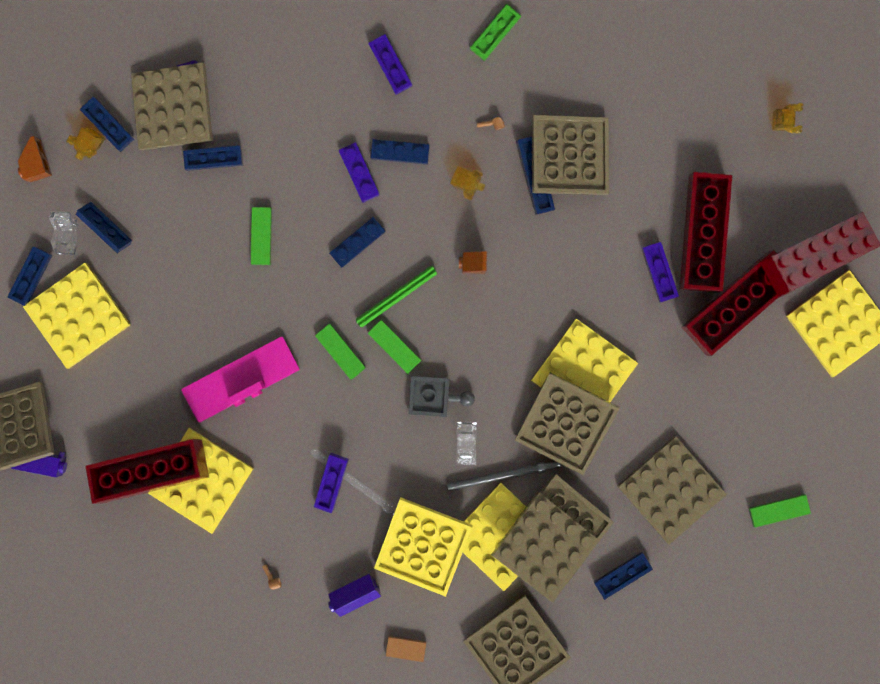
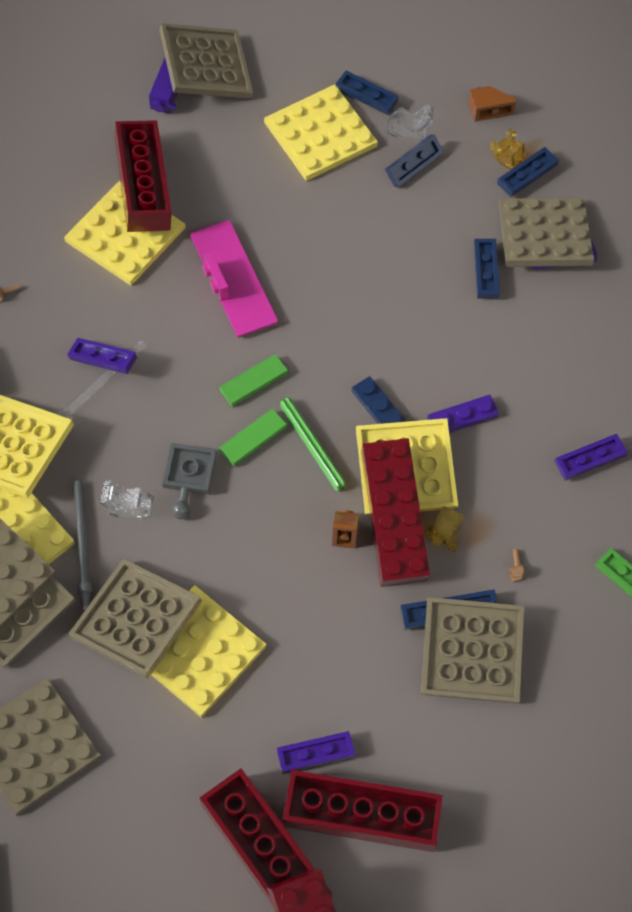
camera: 95 degrees right, 25 degrees down
(261, 236) = (394, 310): bright green tile -> none
(400, 151) = (485, 461): dark blue plate -> none
(414, 216) = (430, 459): none -> light yellow plate
(460, 222) = (395, 512): none -> dark red brick

